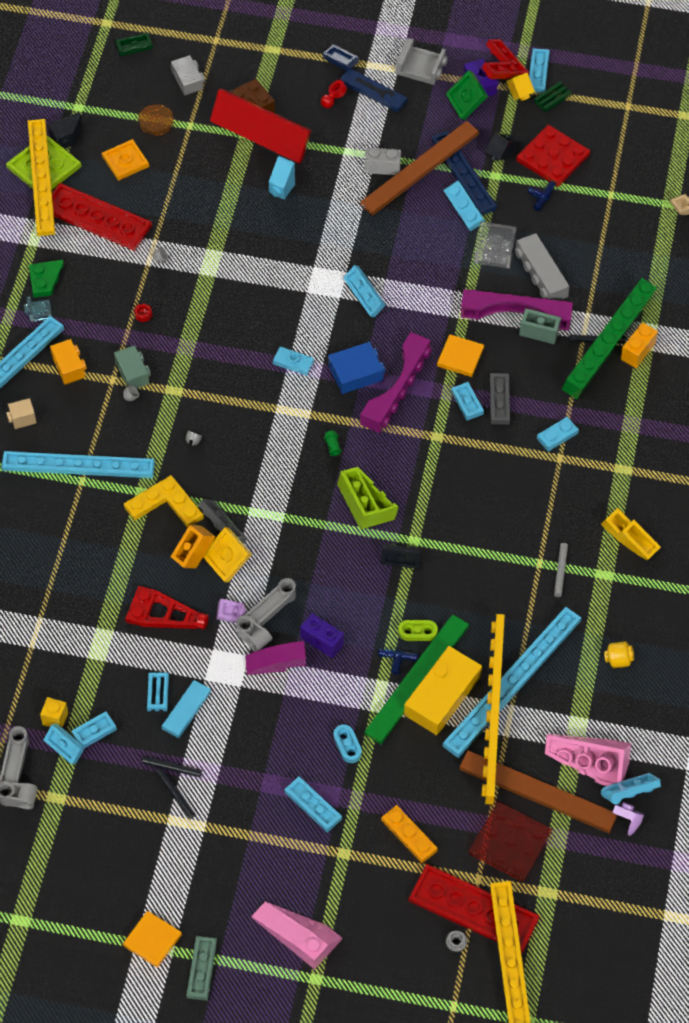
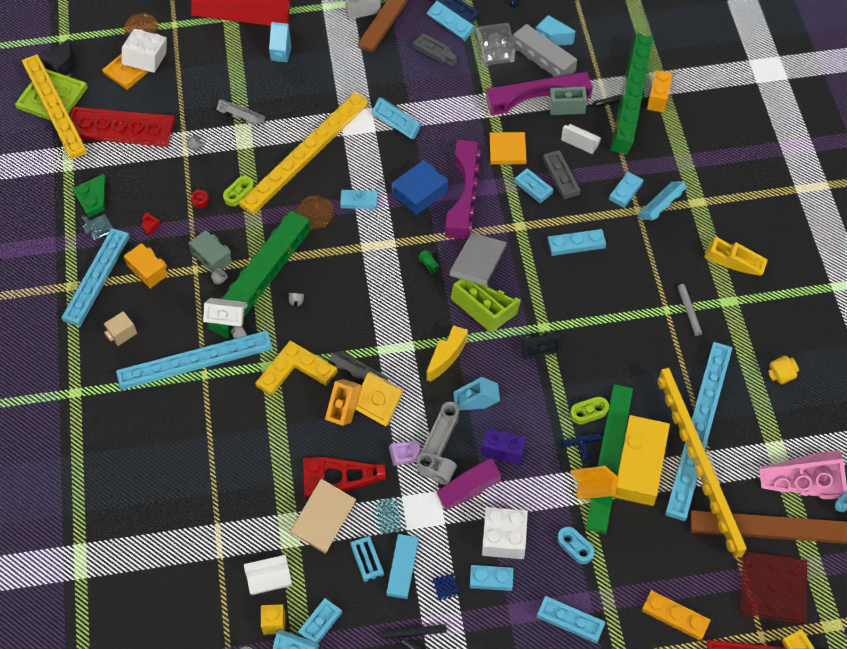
camera: 20 degrees left, 0 degrees up
(66, 675) = (268, 574): none -> white panel
(87, 322) = (150, 223): none -> red tile
(119, 428) = (224, 311): none -> white panel
(127, 451) = (238, 332): none -> light grey hinge
(134, 641) = (322, 516): none -> tan tile
(147, 146) = (144, 50): none -> white brick
(168, 403) = (265, 265): none -> green brick
(182, 317) = (237, 191): none -> lime plate
(192, 661) = (388, 516): none -> clear light blue bracket
(215, 237) = (240, 112): none -> light grey hinge
(216, 739) = (445, 587): none -> clear blue tile
(247, 360) = (317, 210): none -> clear orange tile
(260, 745) = (491, 578): none -> medium azure plate
(261, 298) = (303, 153): none -> yellow plate
(288, 711) = (505, 533): none -> white brick
(309, 534) = (447, 352): none -> yellow slope
(320, 581) = (477, 394): none -> medium azure slope
(377, 455) = (478, 259): none -> light grey tile
(389, 694) = (595, 482): none -> light orange panel
(434, 231) = (435, 50): none -> dark grey hinge
(483, 470) = (576, 242): none -> medium azure plate
(537, 368) = (580, 138): none -> white panel
(563, 250) = (556, 31): none -> medium azure slope
(586, 456) = (662, 200): none -> medium azure plate

